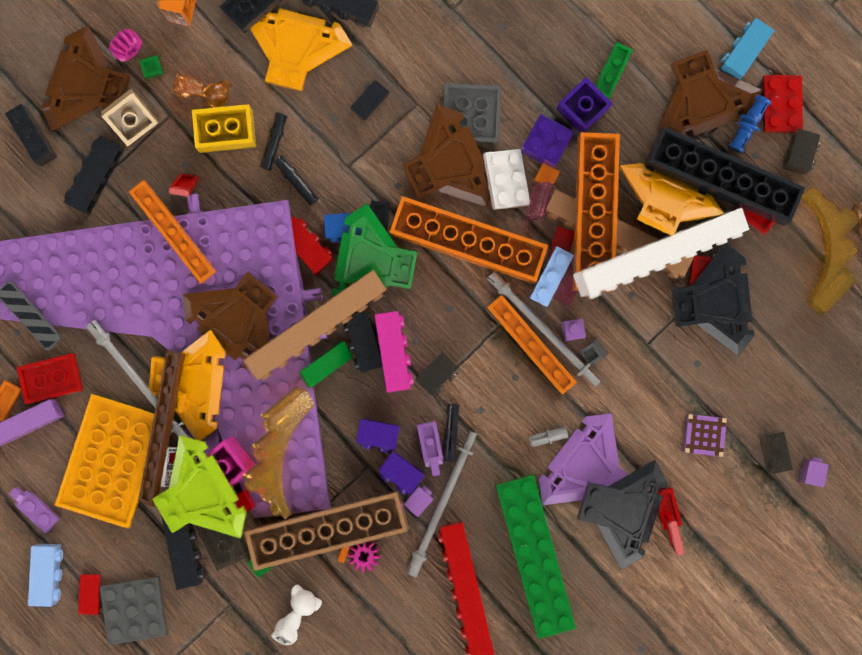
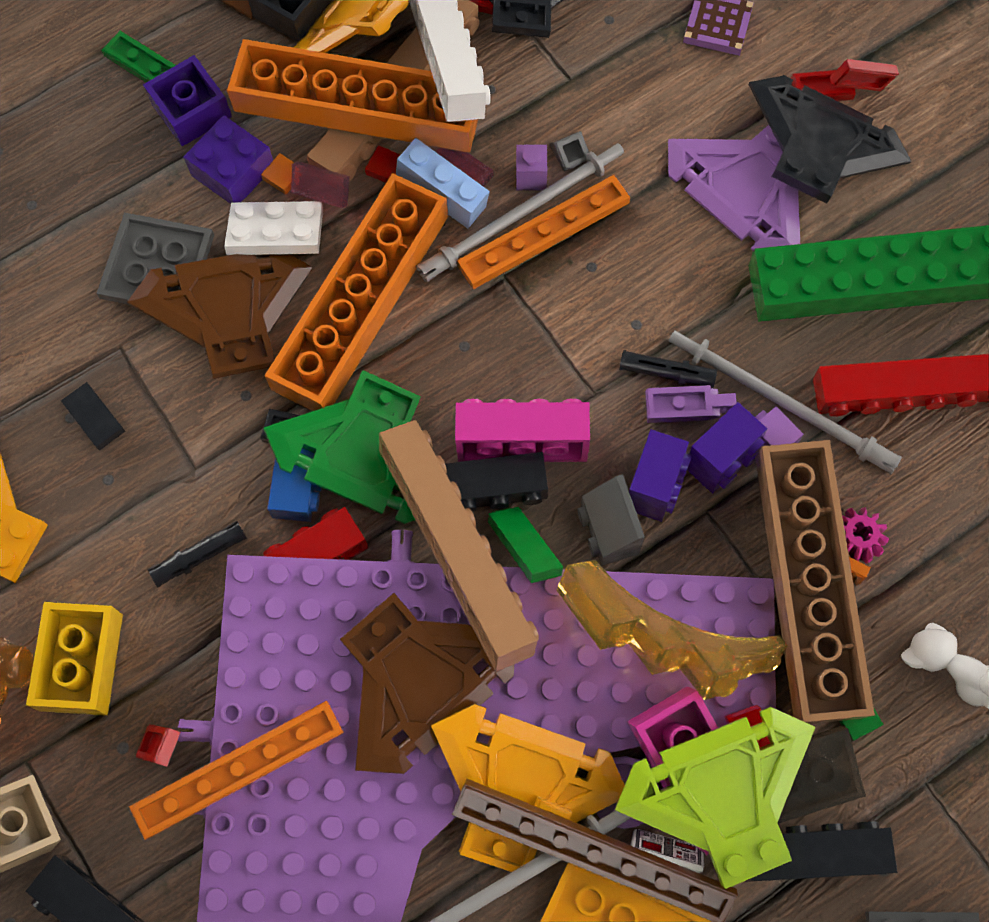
camera: 75 degrees left, 15 degrees down
(275, 135) = (108, 575): black pin -> none
(347, 411) = (611, 522): none -> dark grey slope
(437, 374) = (567, 372): clear smoke brick -> none
(548, 436) = (693, 229): light grey axle -> none

